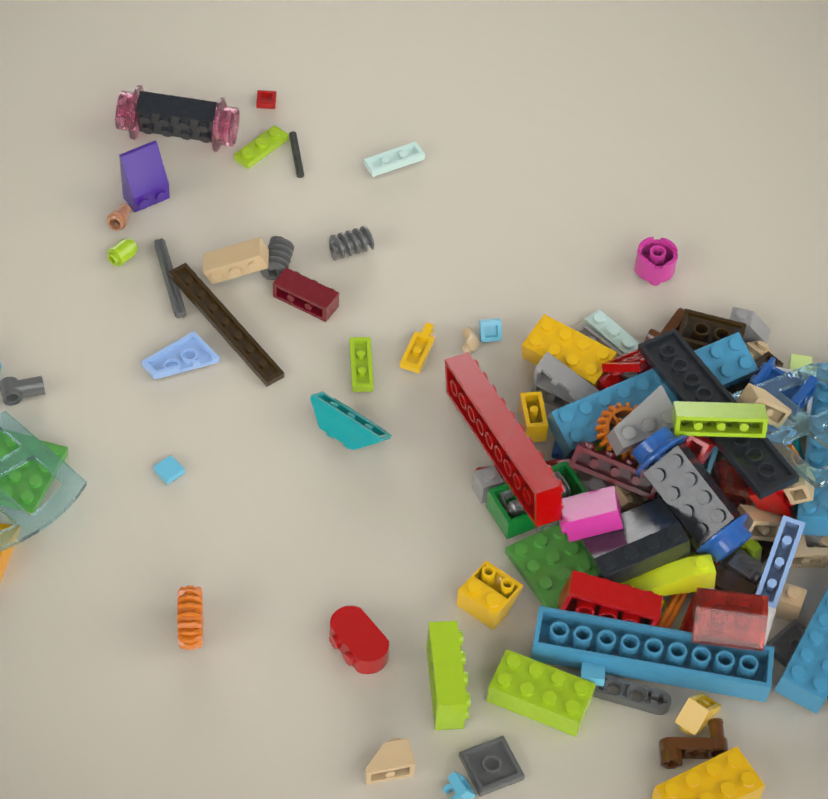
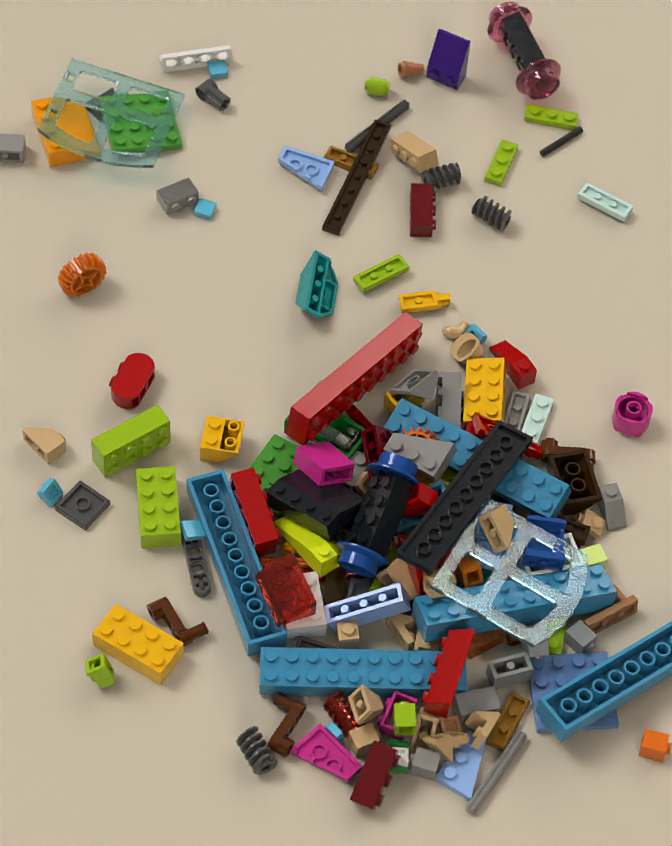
camera: 60 degrees right, 5 degrees up
(137, 483) = (177, 196): none -> light grey brick
(193, 322) = (346, 159): none -> pearl gold tile
(266, 99) = (603, 97): red tile -> none
(289, 209) = (501, 162): none -> lime plate
(501, 341) = (466, 347): none -> tan piece
(529, 315) = (518, 365): none -> red slope
(539, 391) = (417, 384): none -> light grey slope
(697, 713) = (203, 609): yellow slope -> none
(719, 419) = (442, 492): lime brick -> none

